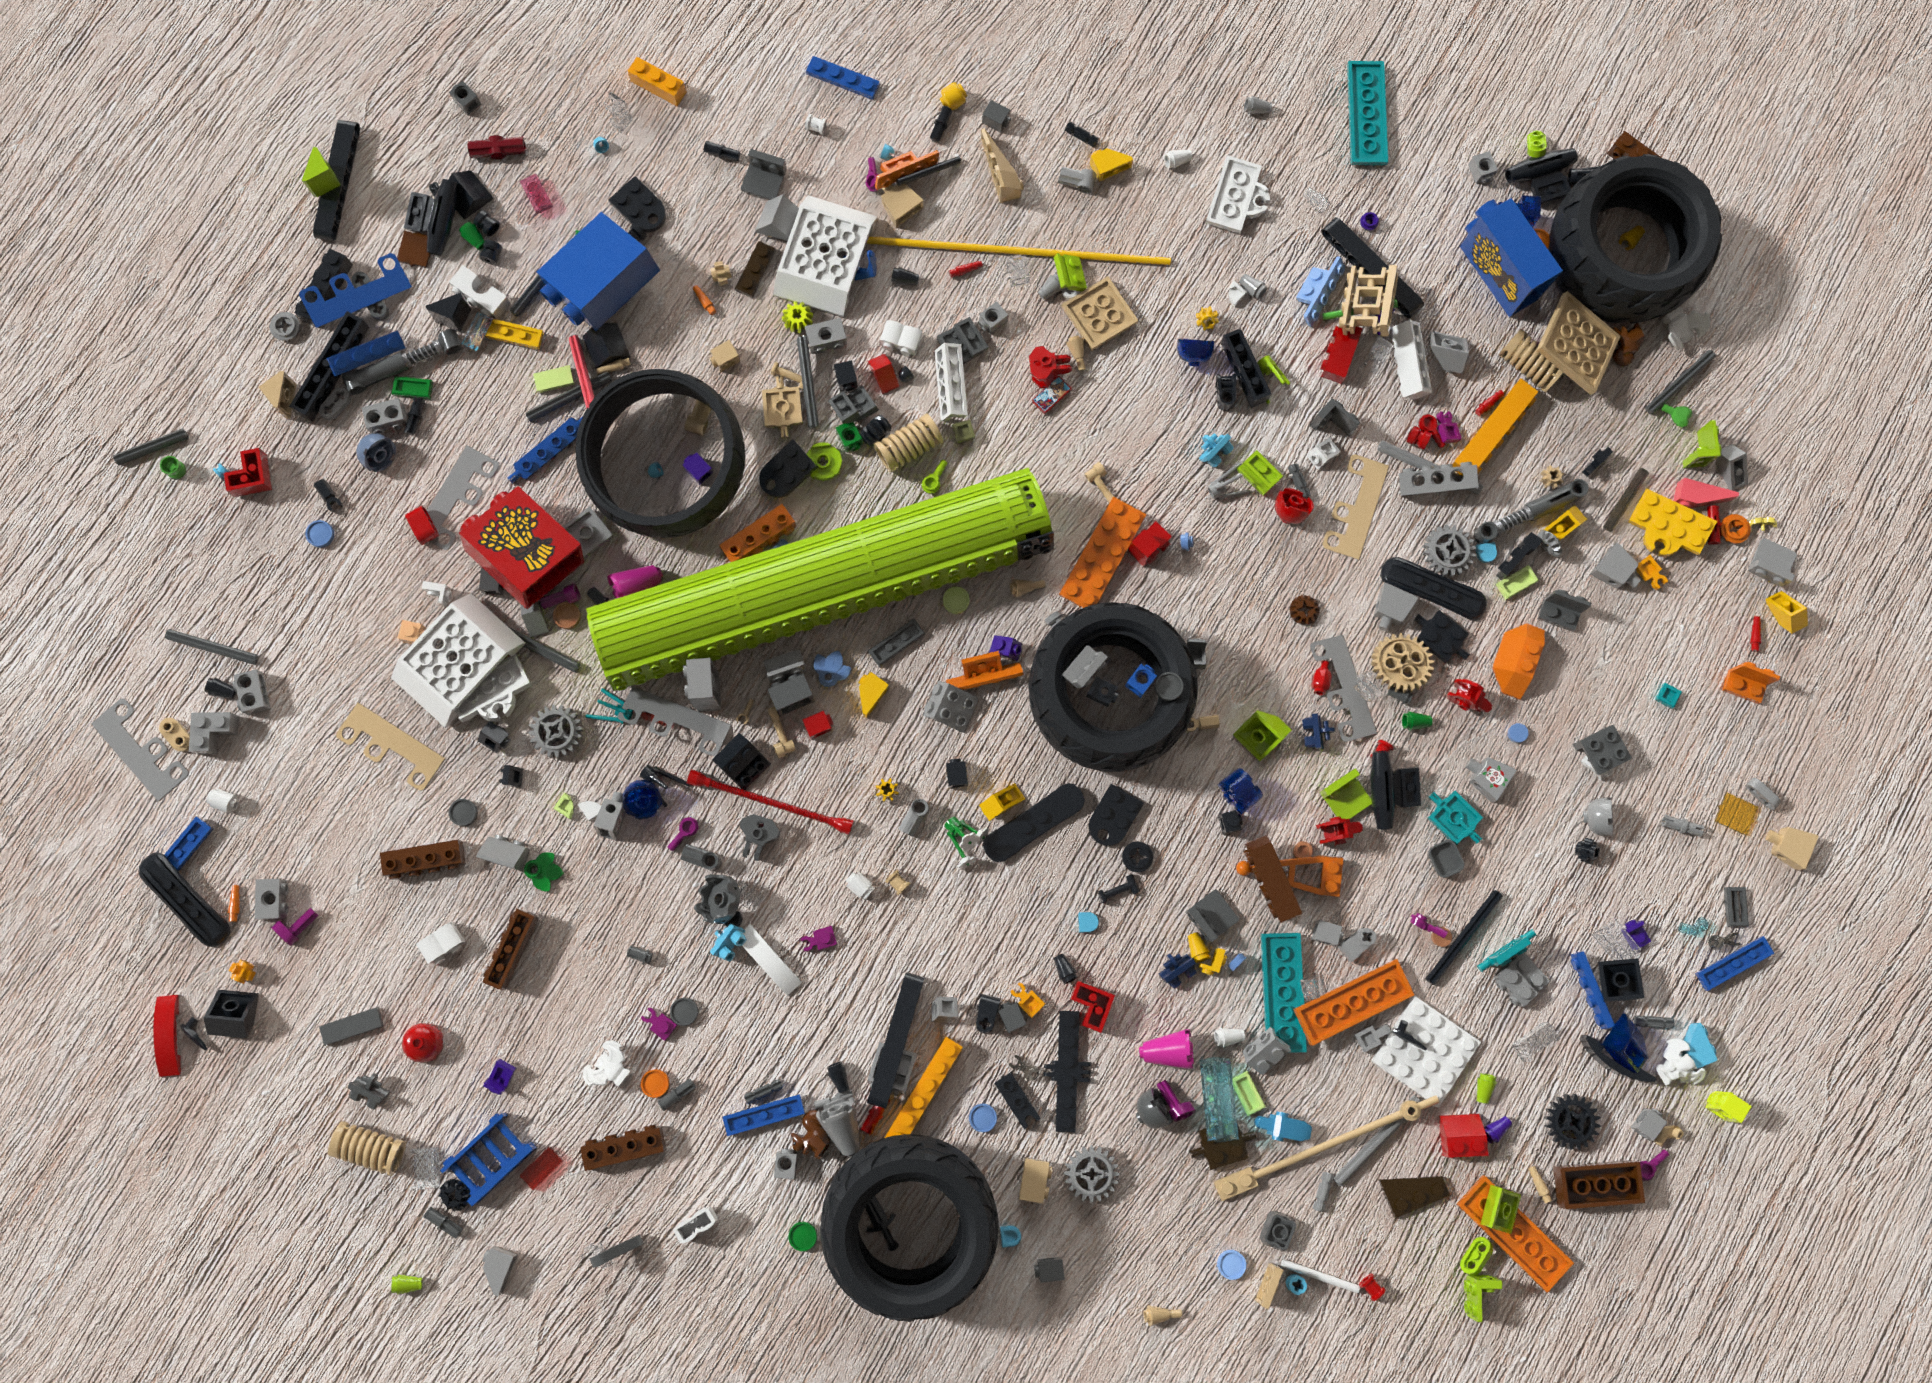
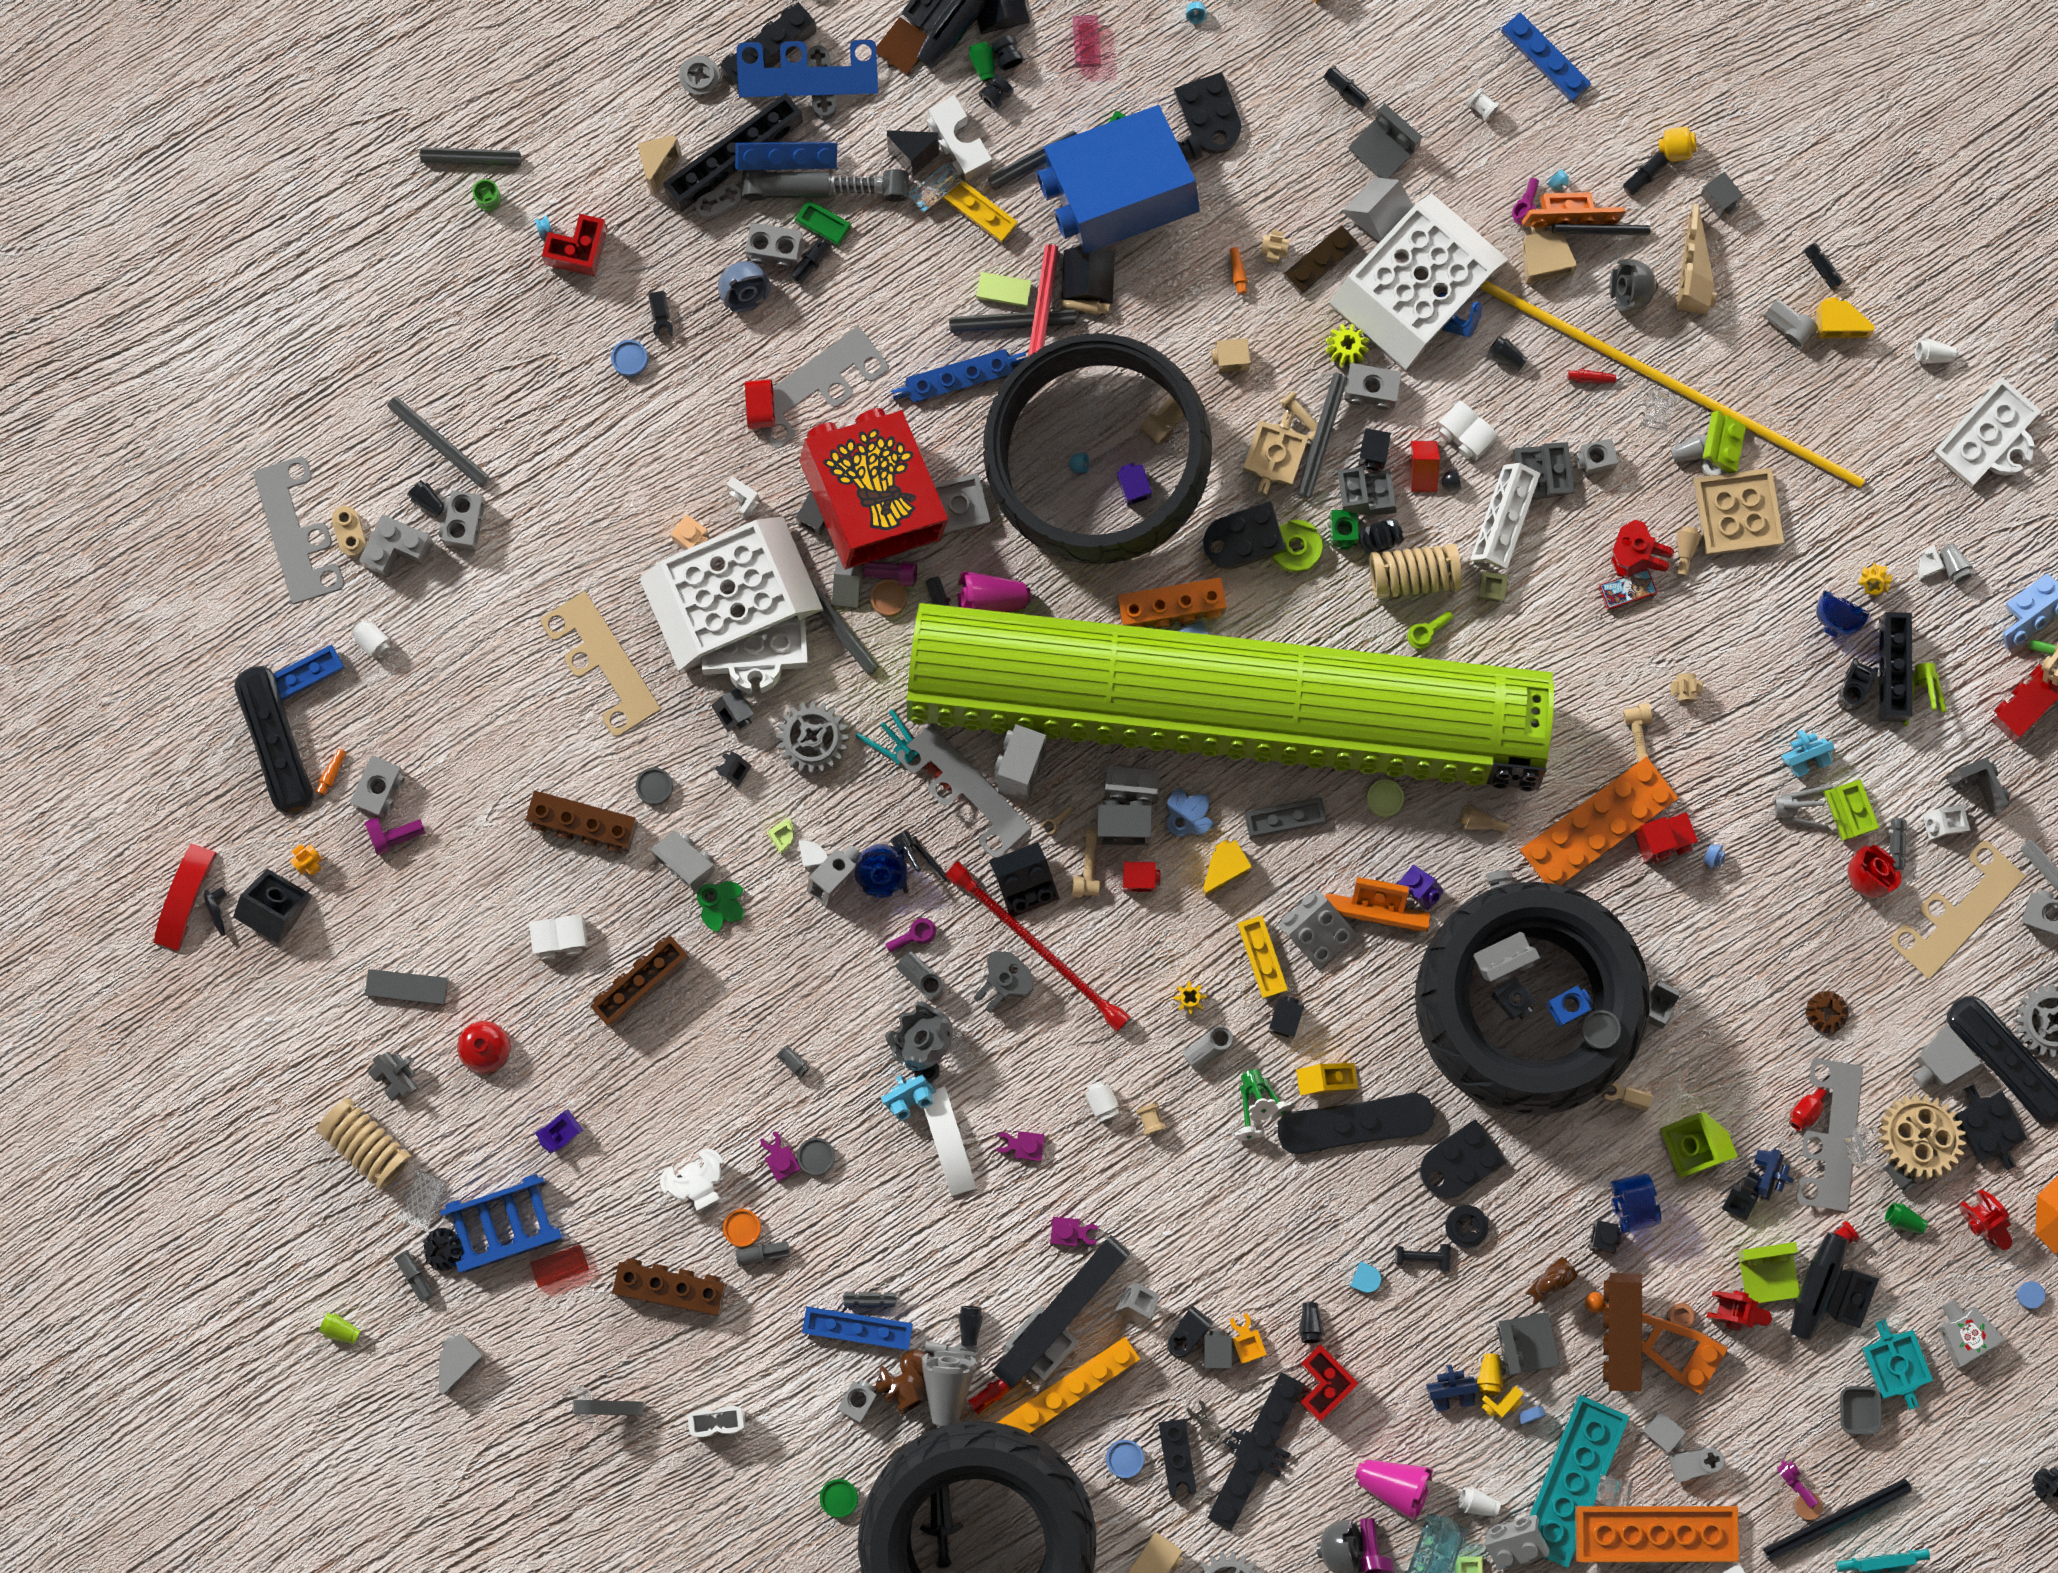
camera: 30 degrees right, 0 degrees up
(876, 983) = (1067, 1232): none -> magenta plate
(922, 741) = (1262, 957): none -> yellow plate
(965, 197) = (1632, 285): none -> dark grey cylinder
(1118, 441) = (1686, 687): none -> tan gear
(1210, 865) = (1552, 1280): none -> reddish brown animal
(1306, 756) = (1742, 1199): none -> black plate

